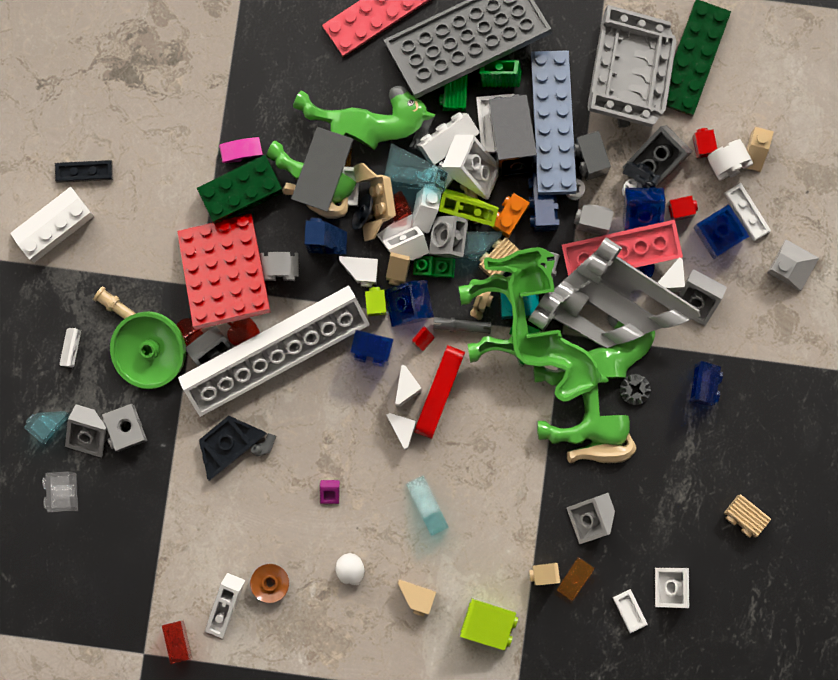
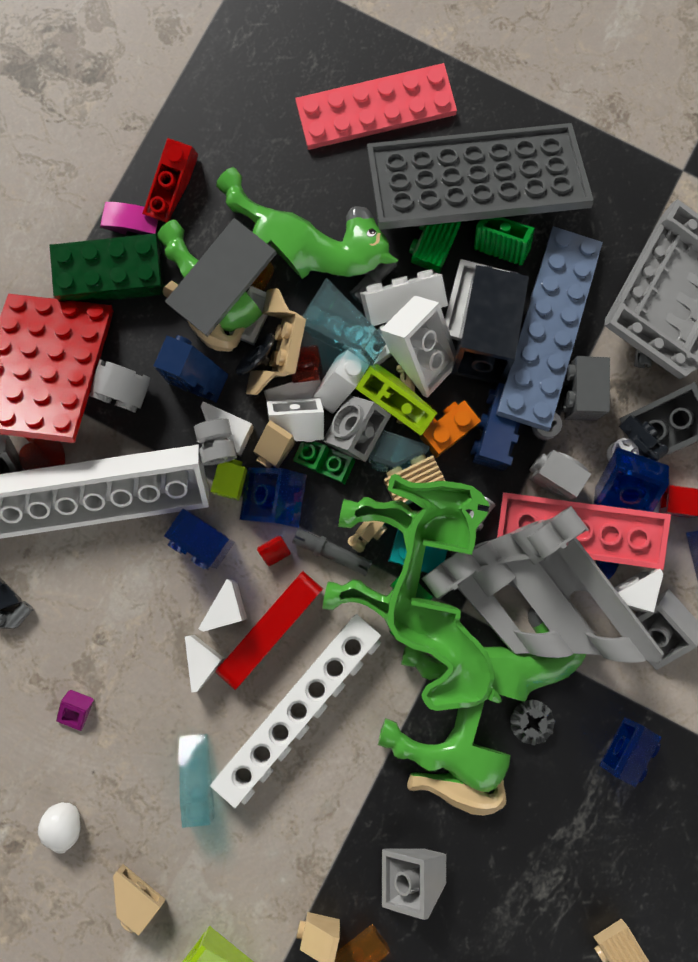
camera: 15 degrees right, 0 degrees up
(259, 115) = (170, 179): none -> red slope
(355, 275) = (215, 441): none -> light grey wheel
(497, 370) = (227, 782): none -> white brick

